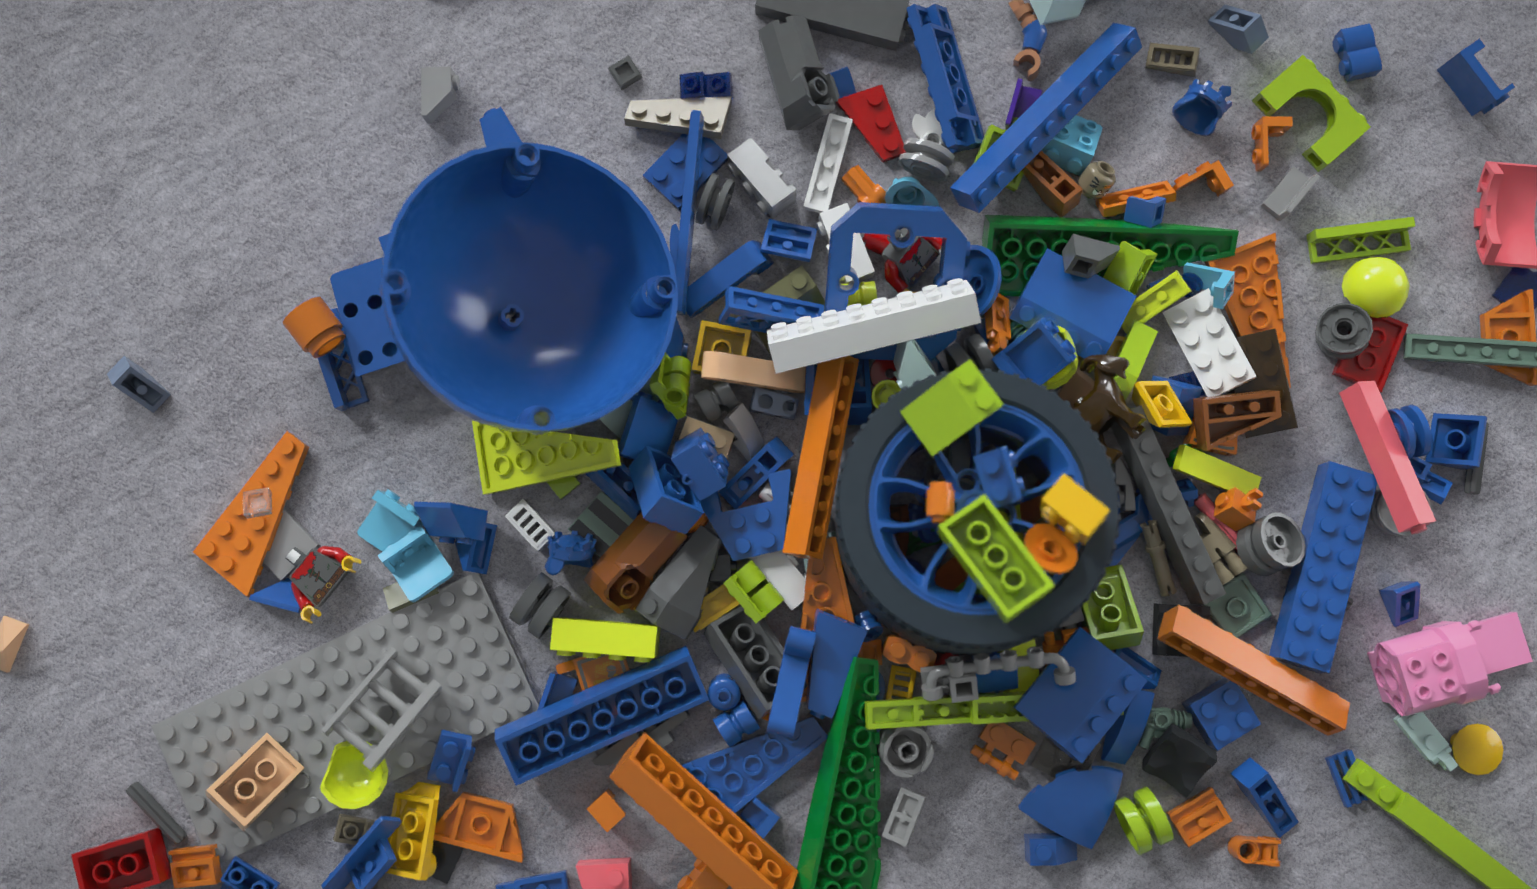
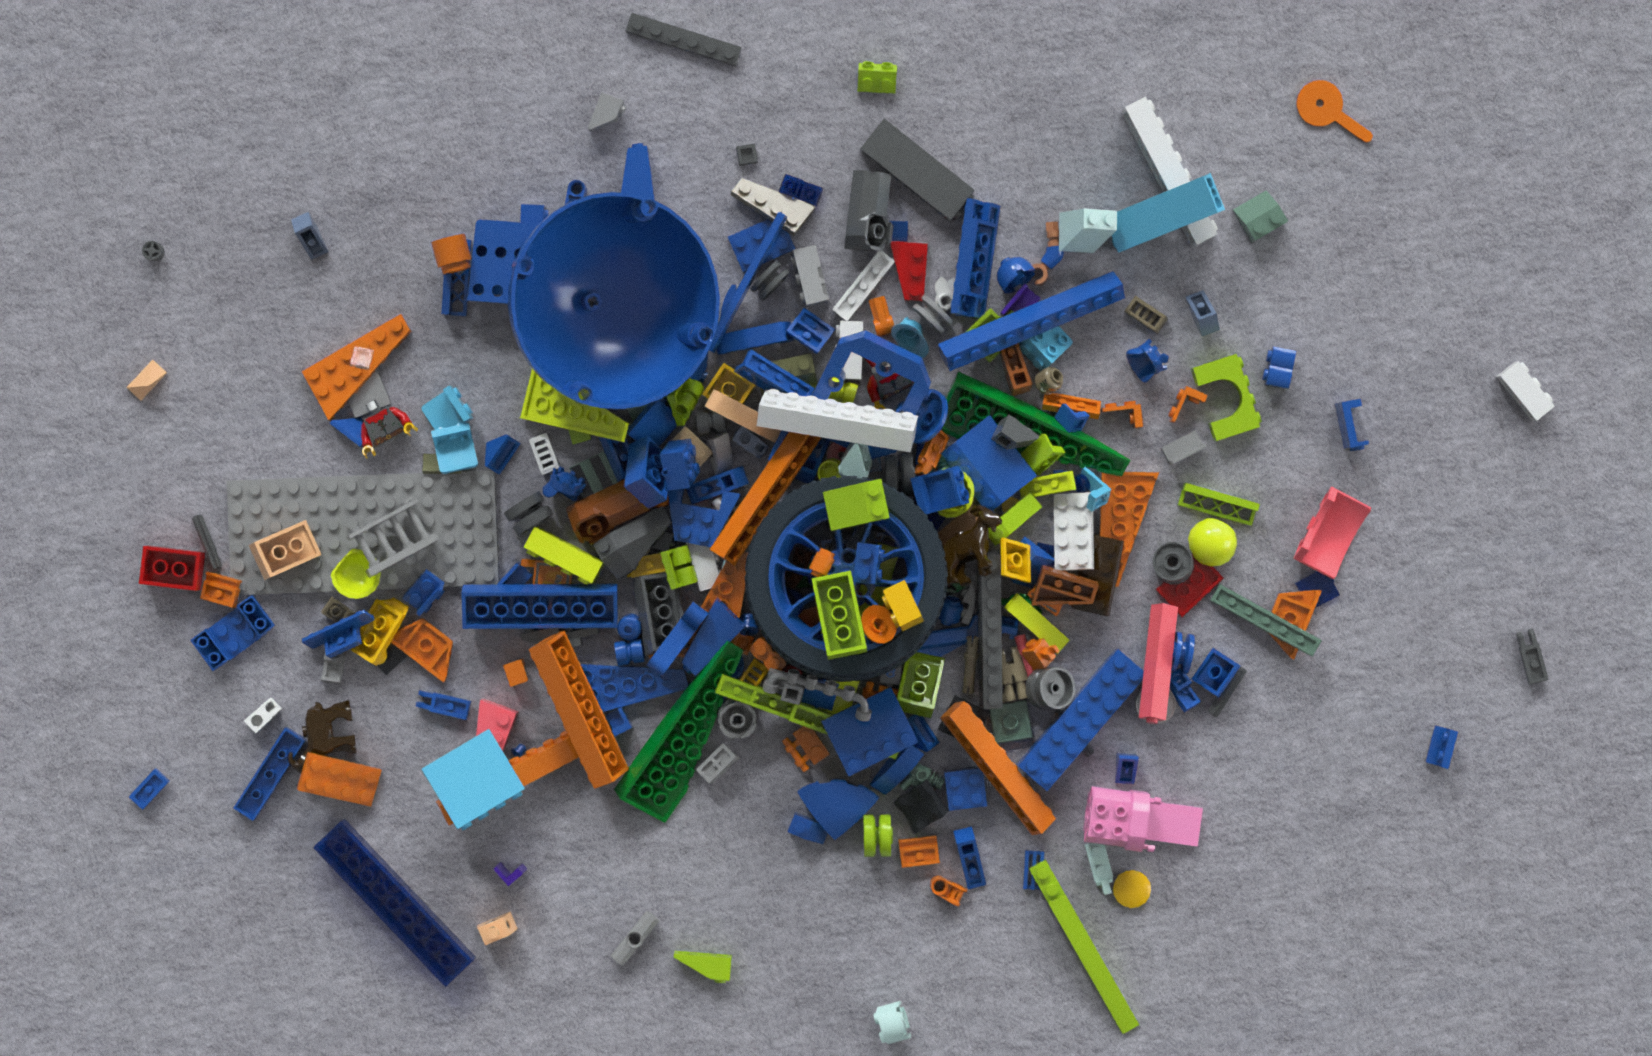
camera: 25 degrees right, 5 degrees up
(452, 522) = (491, 430): blue slope -> none
(999, 73) = (1013, 273): none -> blue cylinder

